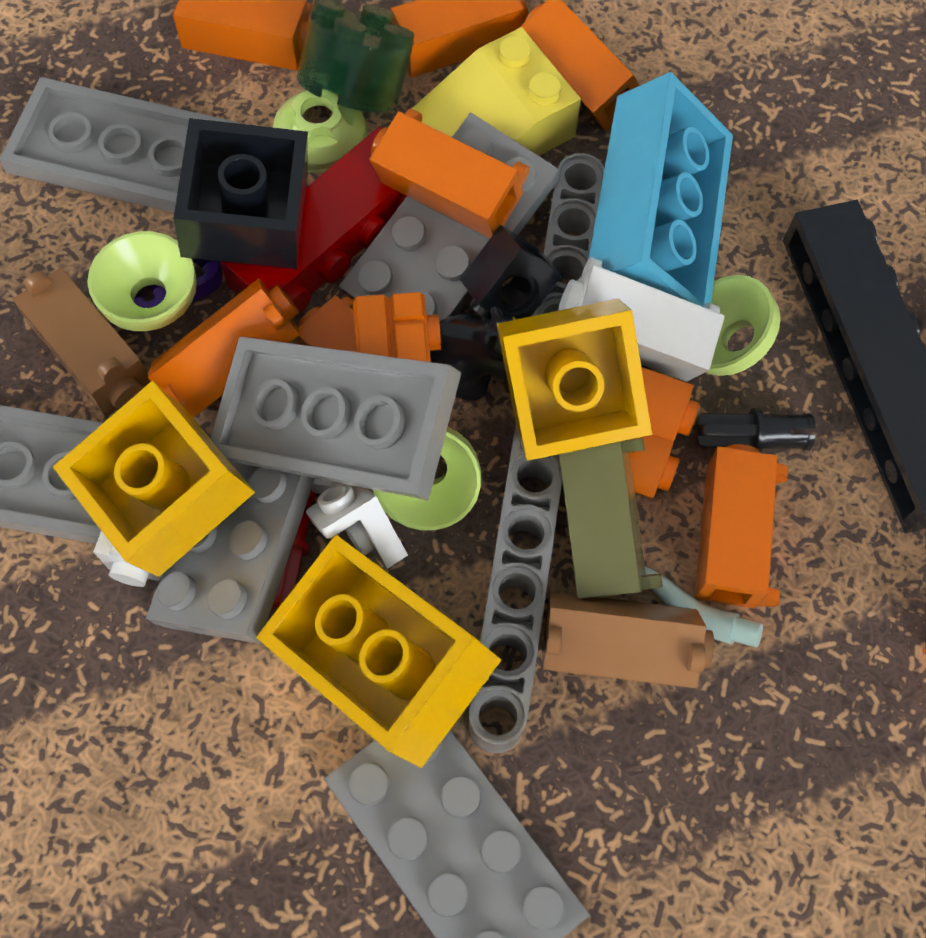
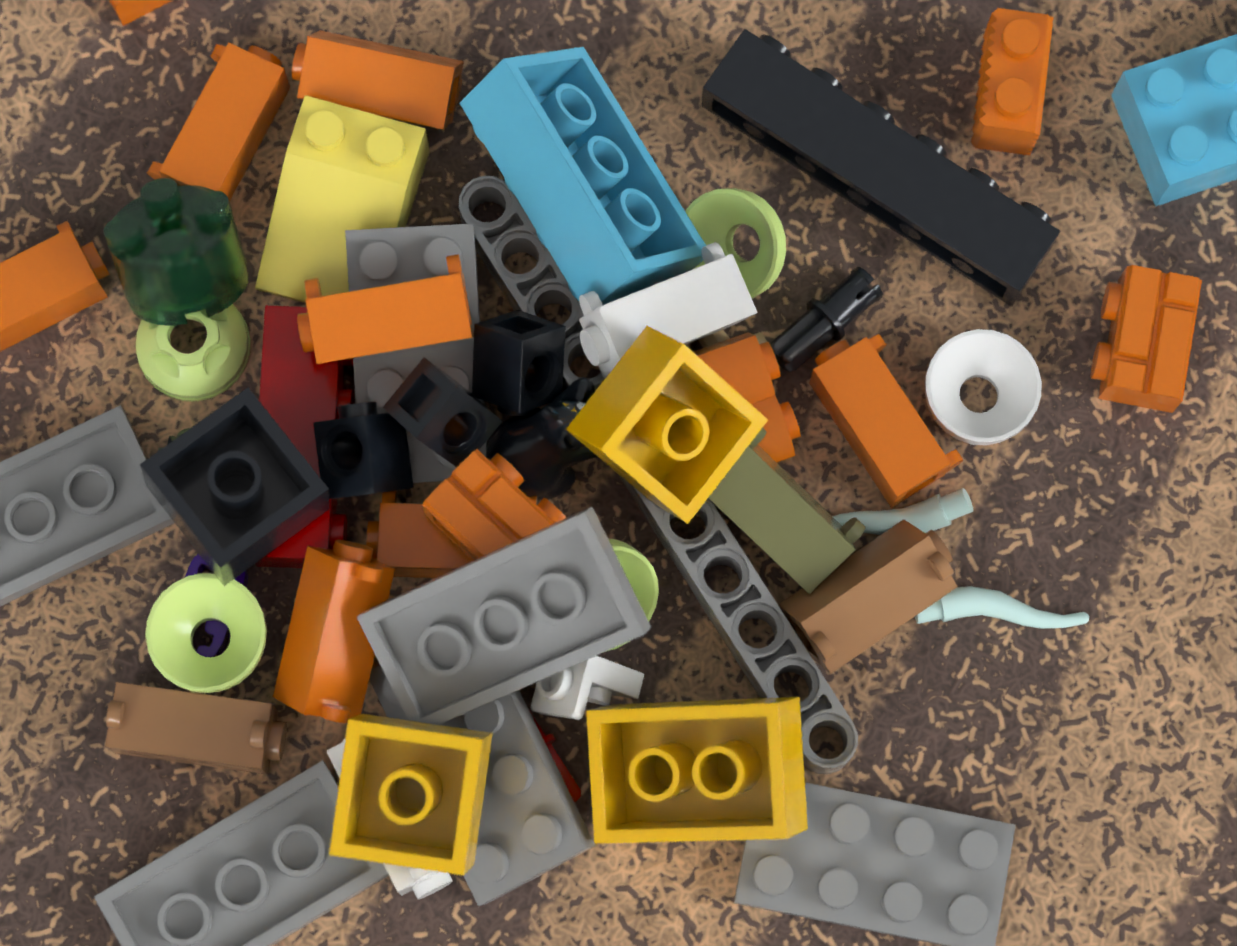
camera: 40 degrees left, 10 degrees up
(352, 251) = (362, 452): none -> black brick
(420, 241) = (442, 413): none -> black brick
(703, 717) = (980, 601): none -> light aqua animal
(856, 545) = (989, 357): none -> white piece

